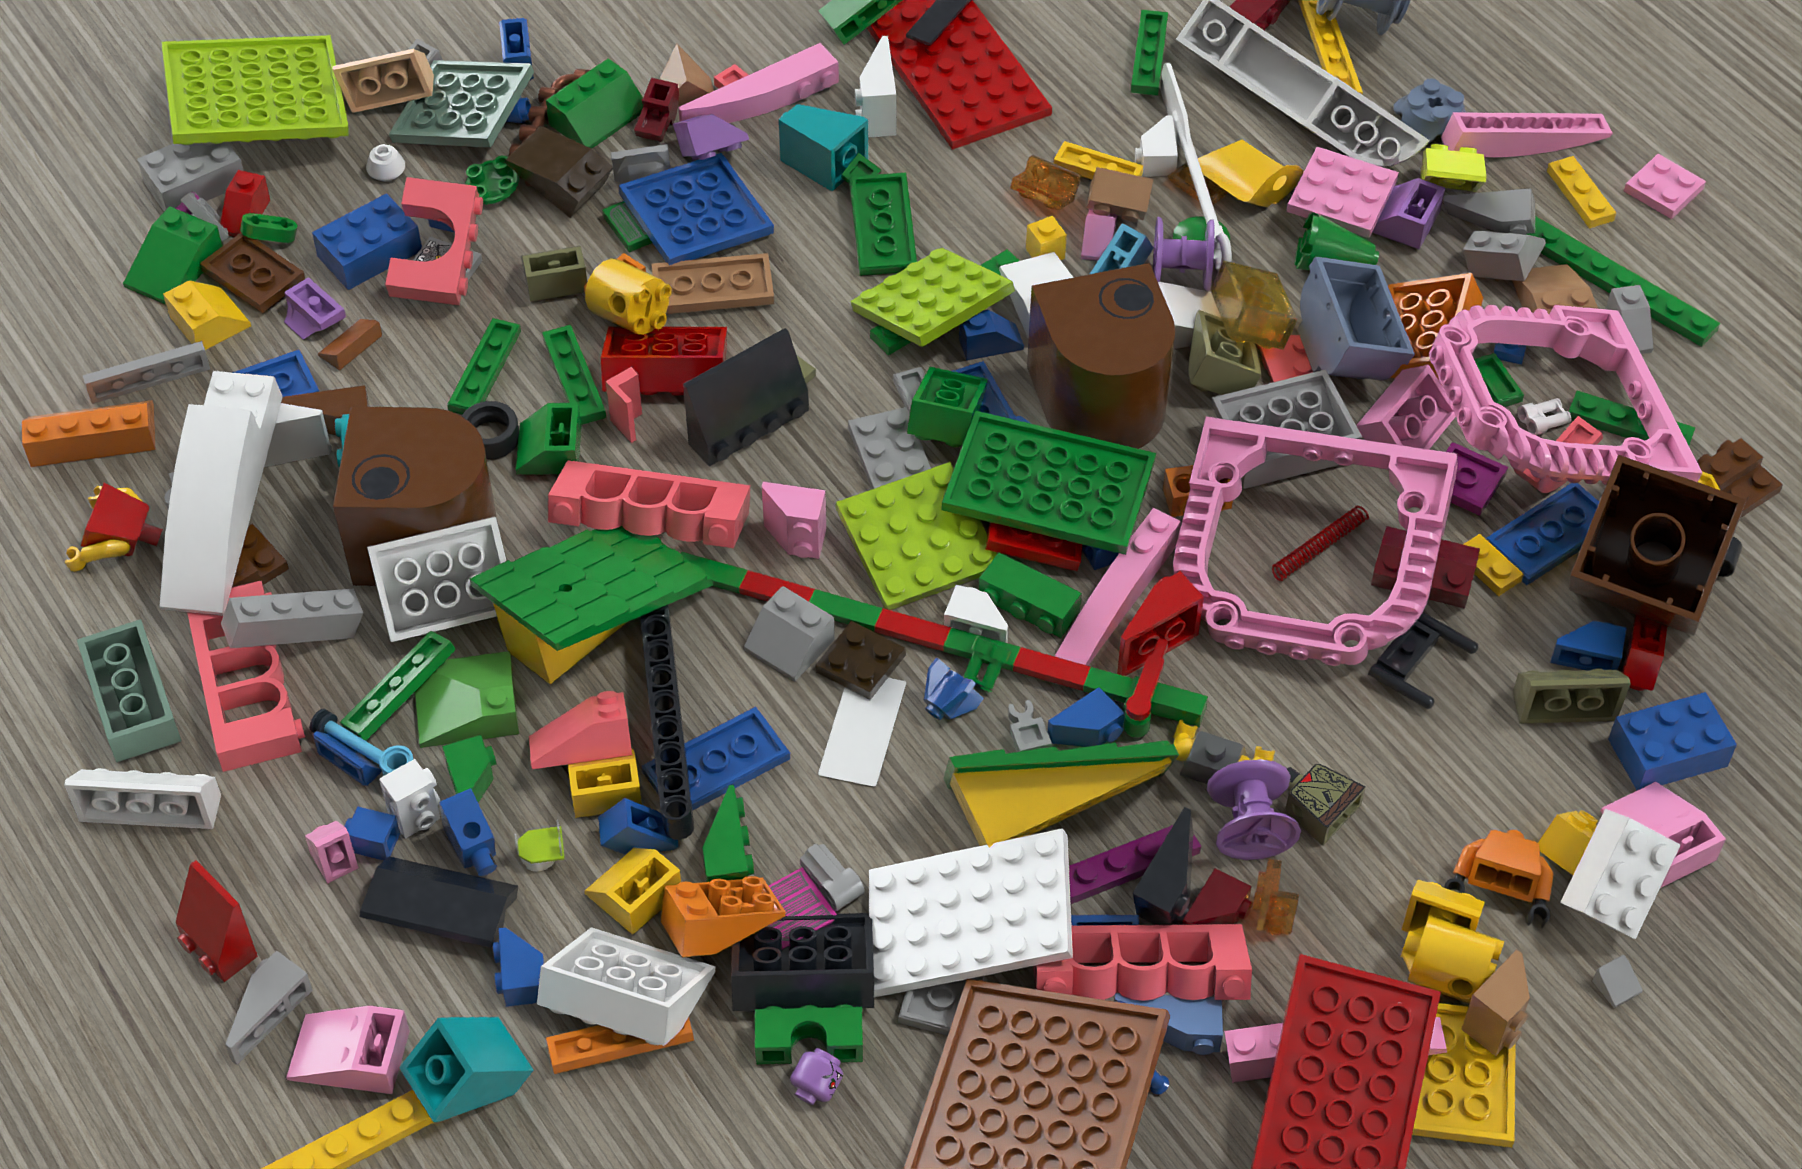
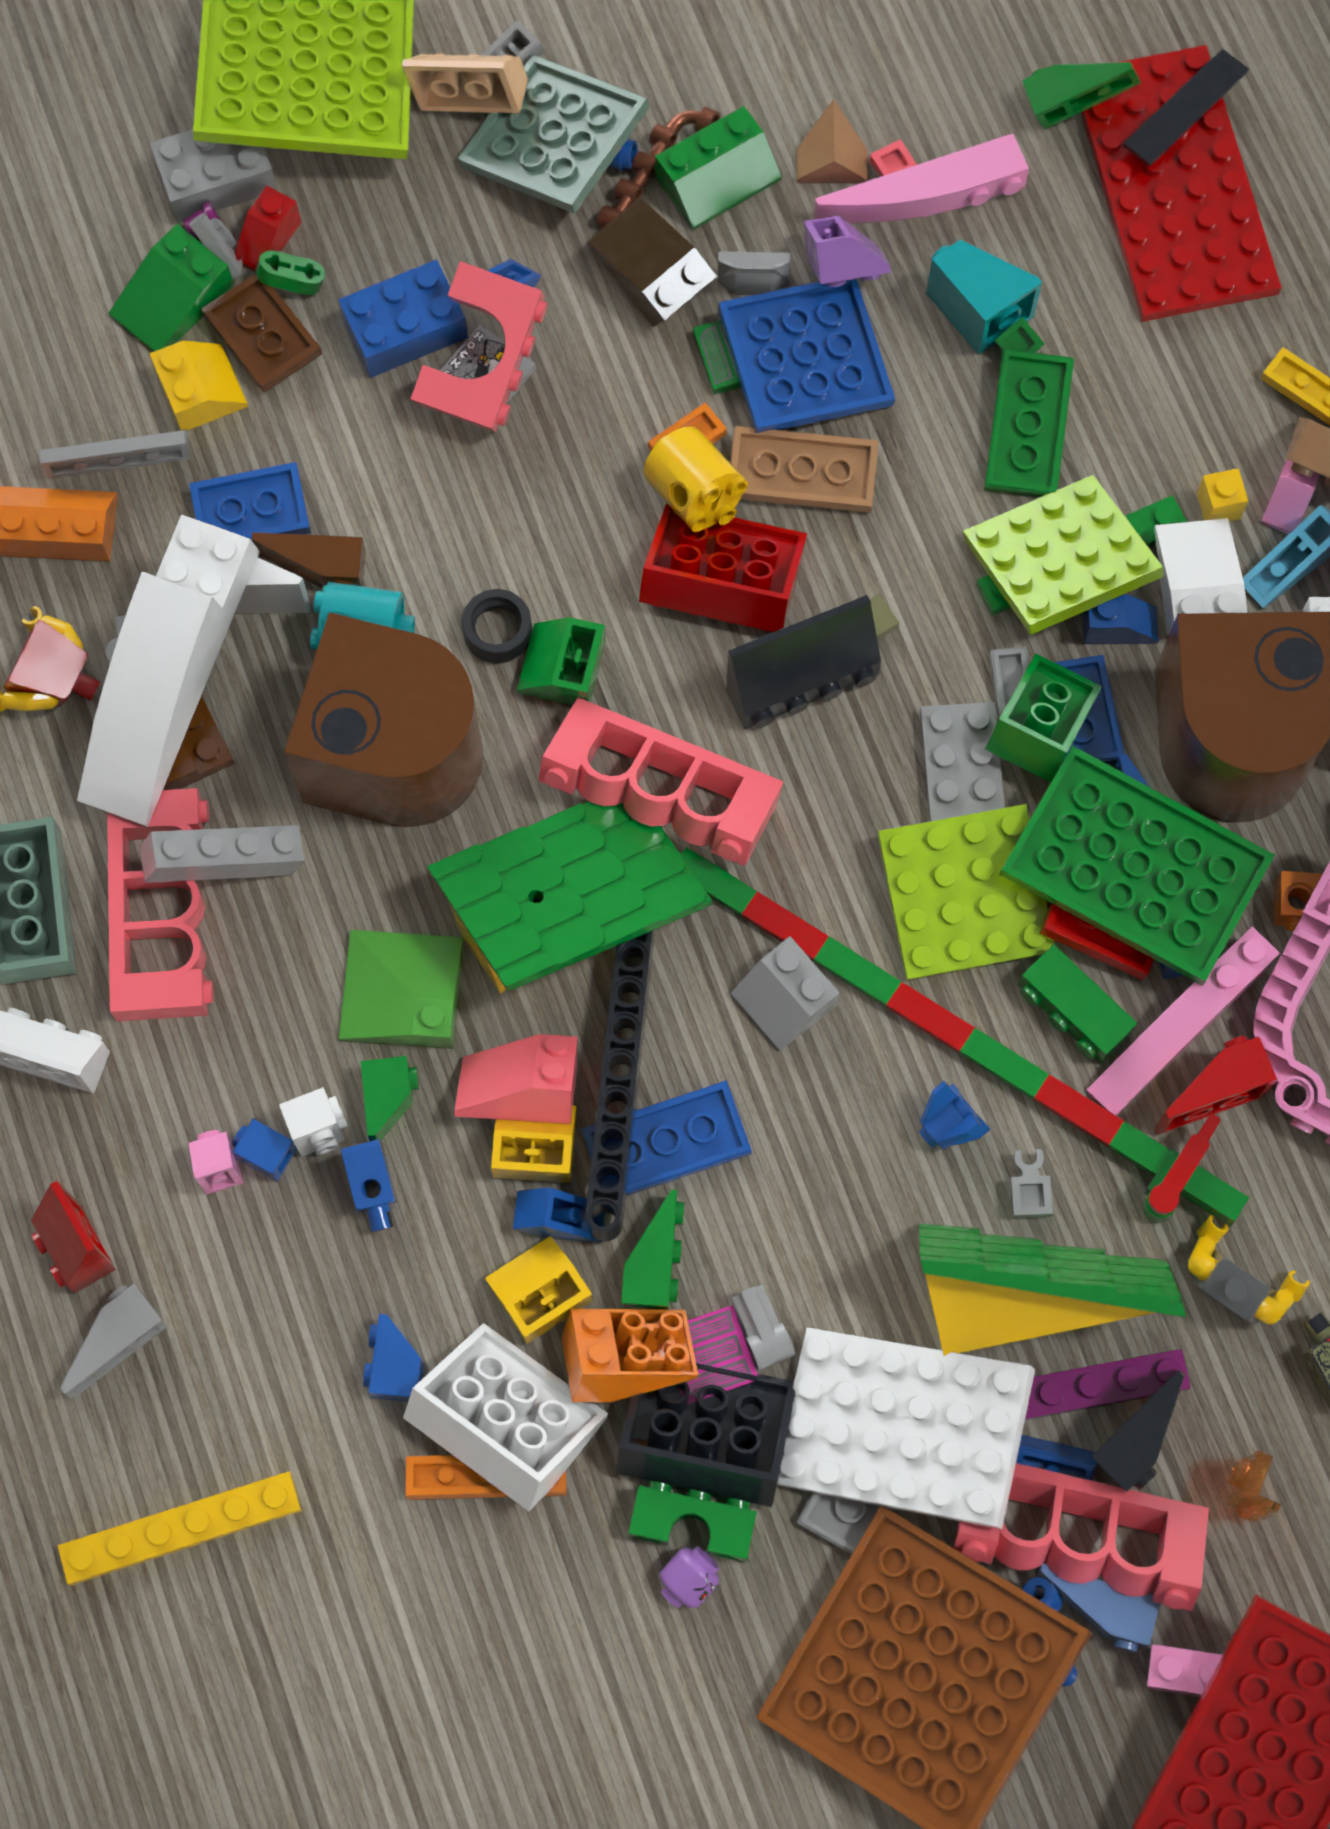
camera: 15 degrees right, 20 degrees up
(310, 309) = (320, 404): medium lavender slope -> none
(346, 758) = (256, 1038): blue slope -> none
(351, 343) = (359, 459): dark orange slope -> none
(351, 1048) = (192, 1419): bright pink slope -> none
(385, 163) = (446, 201): white cone -> none
(388, 759) = (238, 991): medium azure piece -> none
(398, 685) = (327, 962): green plate -> none
(427, 577) = (384, 842): white slope -> none
(438, 901) = (322, 1254): black slope -> none
(464, 1066) = (311, 1478): teal slope -> none
(484, 365) = (508, 529): green tile -> none
(493, 179) = (565, 257): green dish -> none
(515, 41) = (636, 57): blue brick -> none
(540, 847) = (447, 1211): lime piece -> none
(554, 273) = (616, 410): olive slope -> none
(574, 373) = (611, 566): green plate -> none
(624, 402) = (660, 625): coral panel -> none
(658, 110) = (792, 192): dark red brick -> none
(795, 518) = (826, 842): bright pink slope -> none
(860, 660) = (860, 1043): dark brown plate -> none
(862, 734) = (842, 1133): white sticker -> none
(878, 92) = (1063, 239): white slope -> none
(975, 613) = (1006, 1018): white slope -> none
(991, 652) = (1012, 1079): green piece -> none
(1047, 183) = (1244, 408): clear orange bracket -> none
(1087, 722) = (1103, 1194): blue slope -> none
(1220, 901) = (1191, 1470): dark red slope -> none
(1249, 791) = (1261, 1367): medium lavender piece -> none

